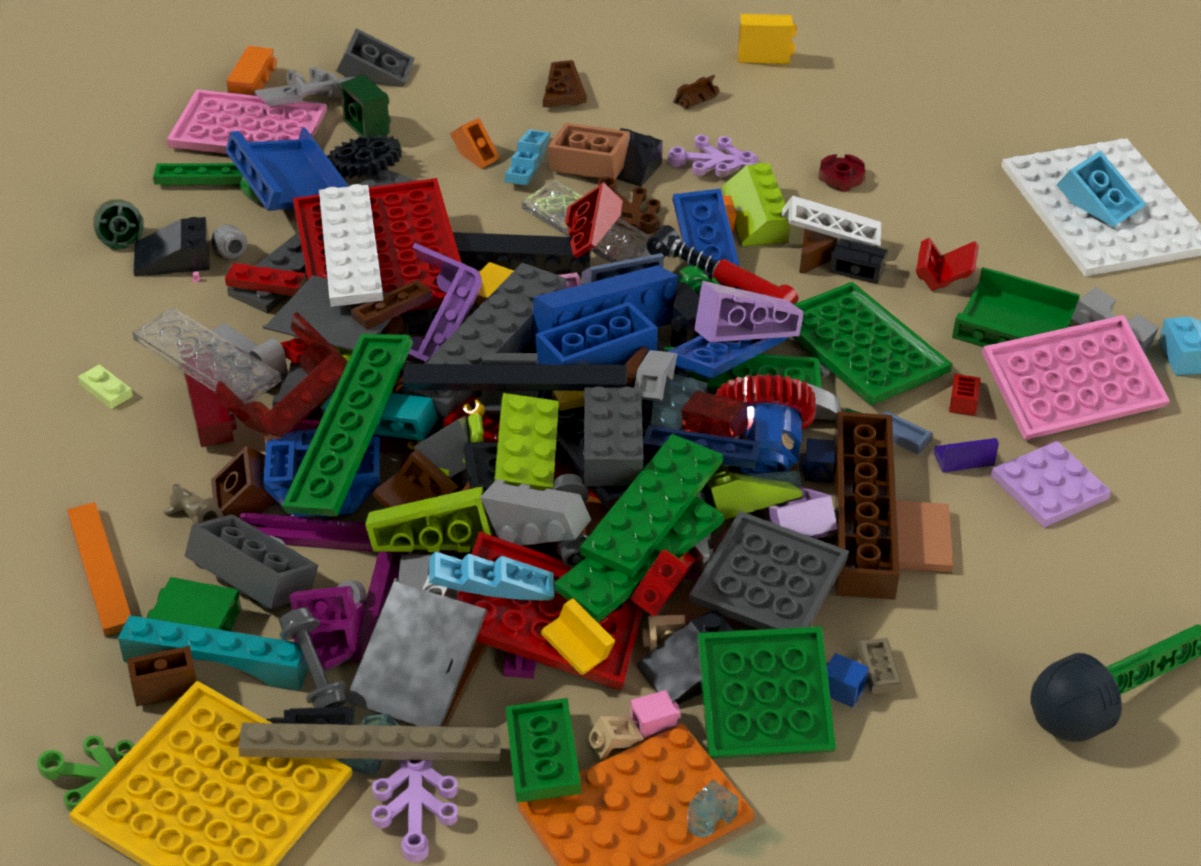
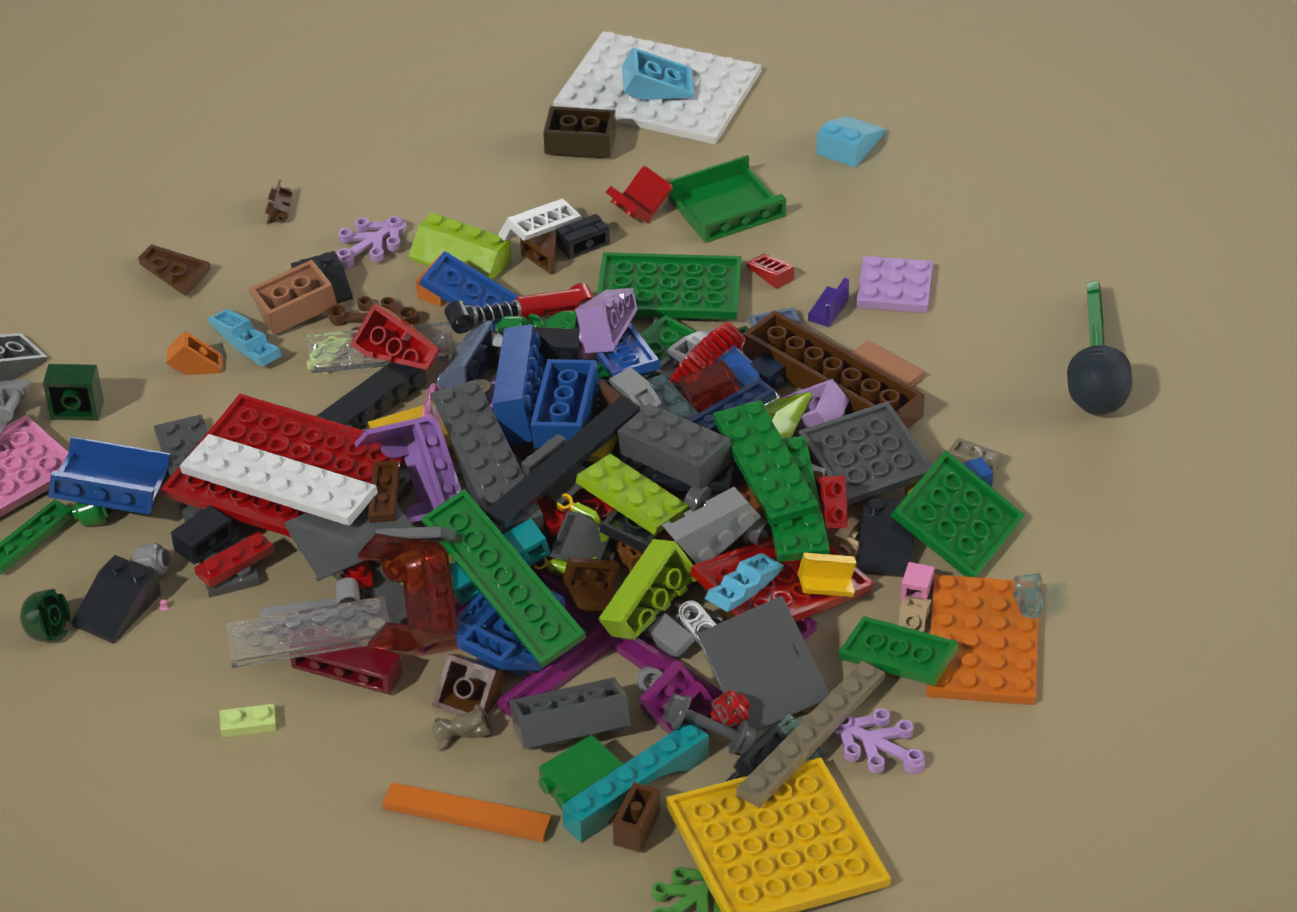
camera: 50 degrees left, 0 degrees up
(270, 247) = (202, 534): none -> black brick
(338, 341) = (431, 534): none -> dark grey tile
(345, 665) = (730, 709): none -> red head
(365, 155) = (147, 417): black gear -> none
(766, 38) = (268, 127): yellow brick -> none
(842, 172) = (462, 192): dark red plate -> none
(979, 189) = (579, 131): none -> dark brown brick
(1074, 377) = (821, 208): bright pink plate -> none
(1098, 306) = (771, 161): light grey arch -> none

